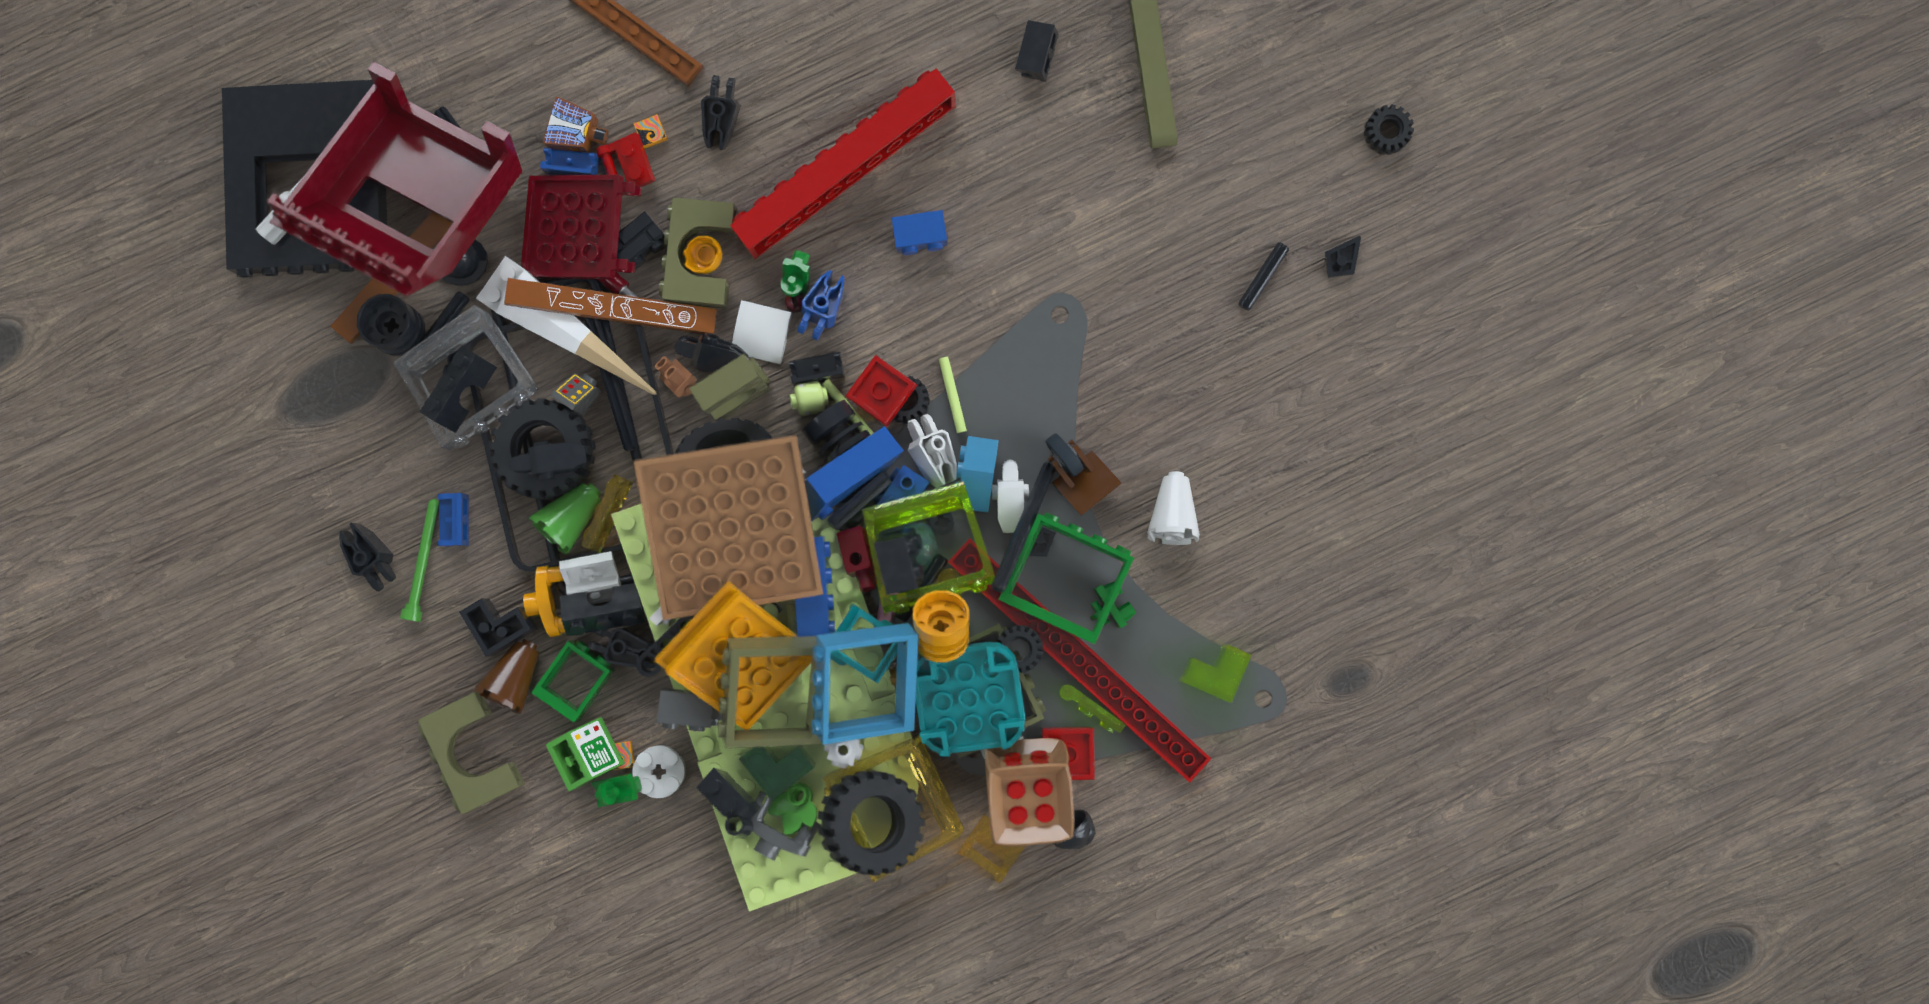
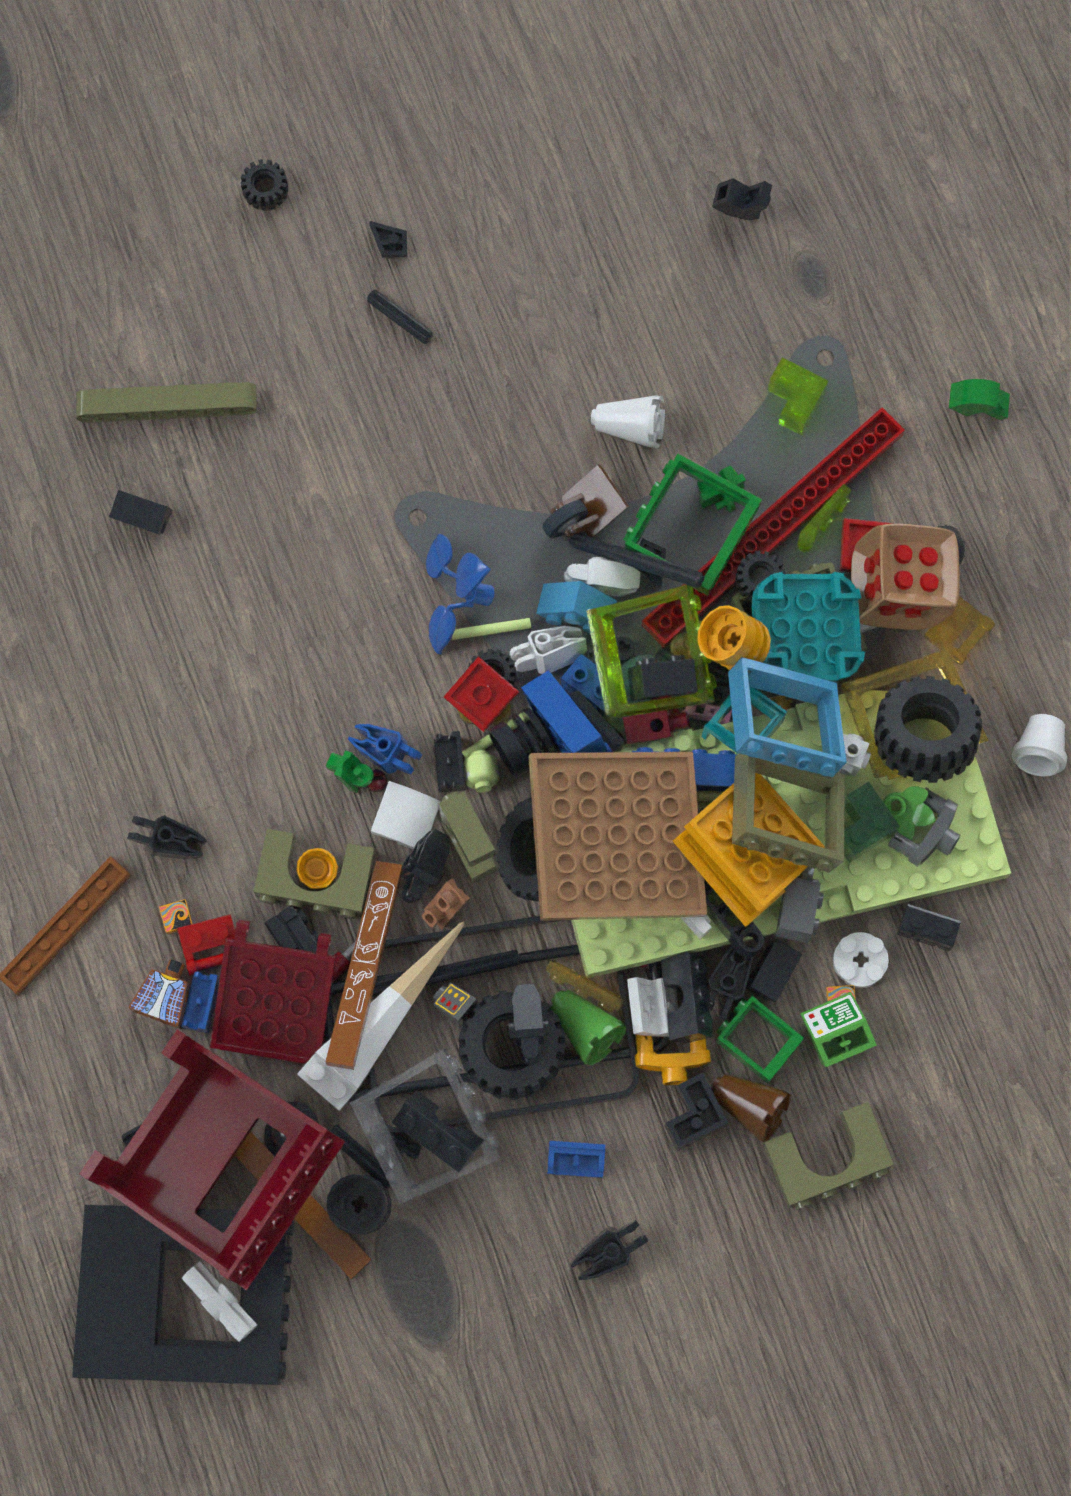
camera: 90 degrees left, 10 degrees down
(412, 610) = (670, 1209): bright green piece -> none
(617, 789) = (878, 1000): green hips -> none
(637, 689) = (773, 970): none -> black hinge
(691, 834) = (928, 927): none -> black brick
(730, 801) = (896, 870): black hinge -> none
(844, 163) = (241, 715): red brick -> none
(877, 935) = (1041, 746): none -> white piece
(919, 232) = (317, 644): blue brick -> none
(982, 365) = (469, 586): none -> blue plant
(1231, 855) = (979, 396): none -> green brick
(1420, 603) = (741, 200): none -> black brick

